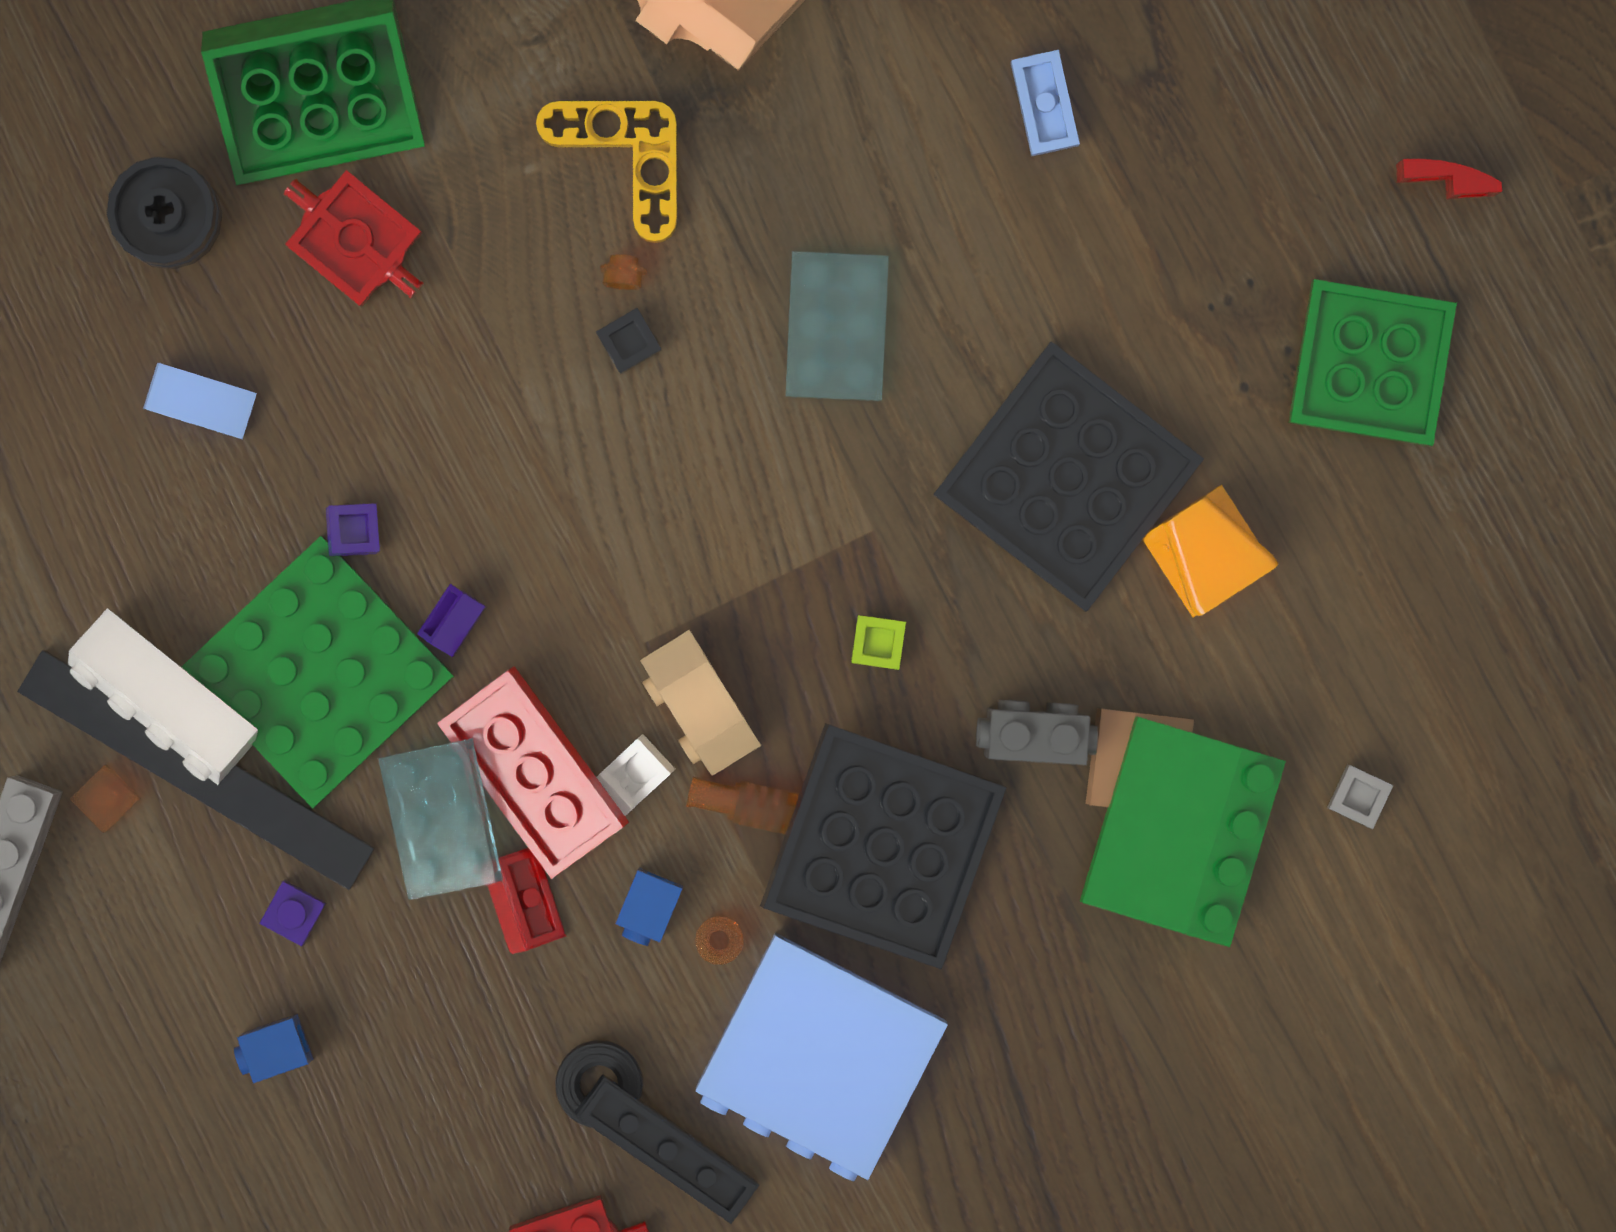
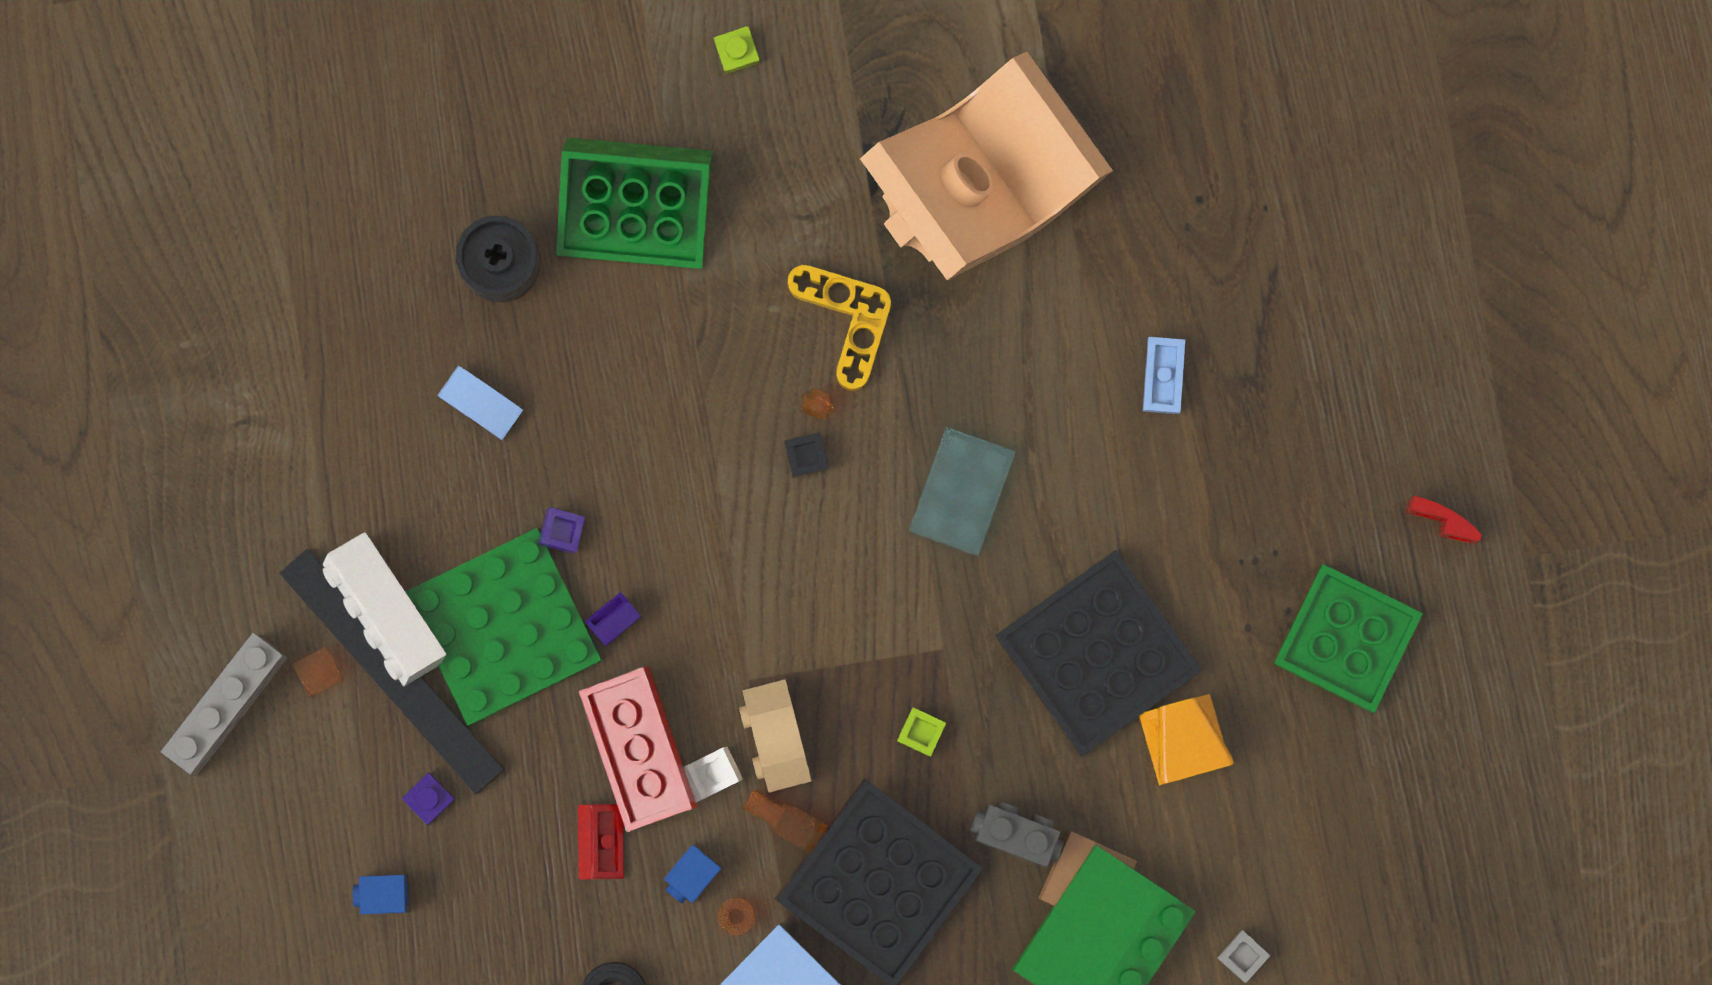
camera: 10 degrees right, 5 degrees down
(353, 238) = (629, 319): red plate -> none
(440, 819) = (559, 762): clear light blue plate -> none

